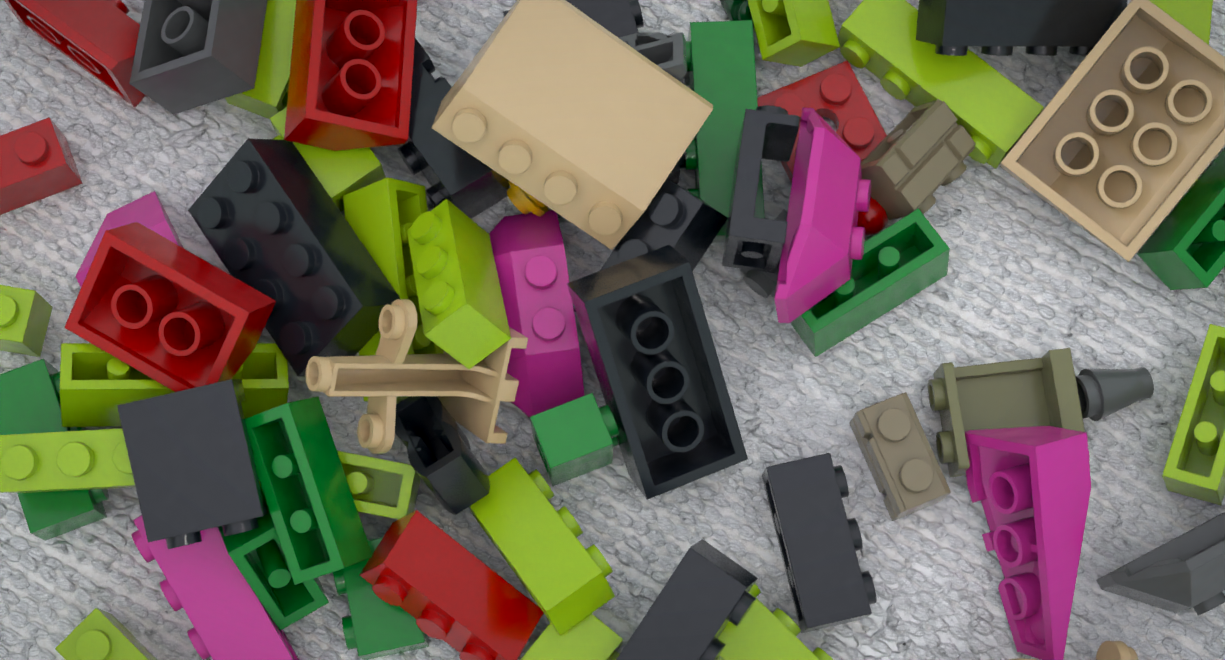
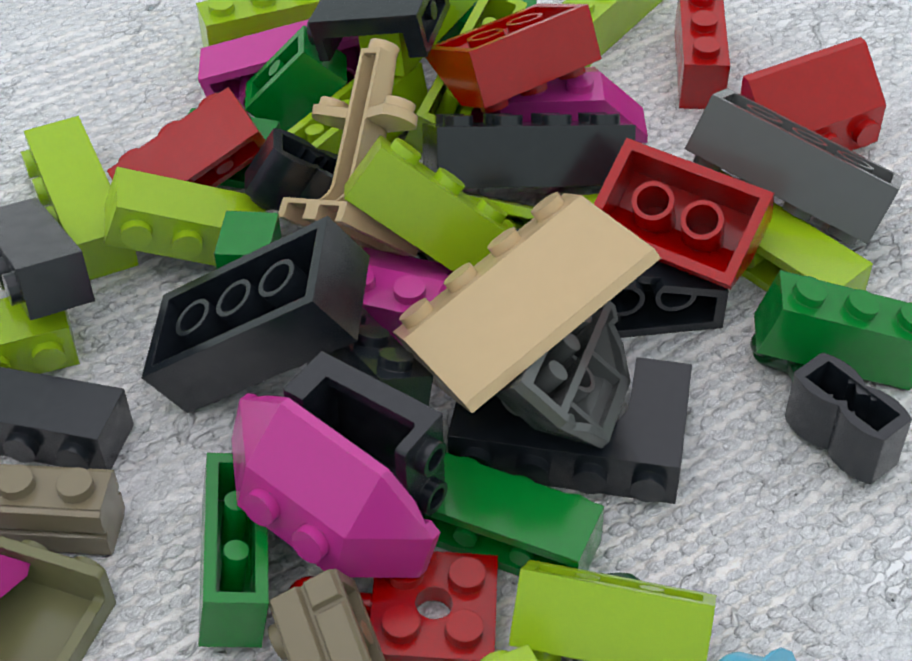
camera: 120 degrees right, 30 degrees down
(306, 490) = (297, 75): green brick -> none

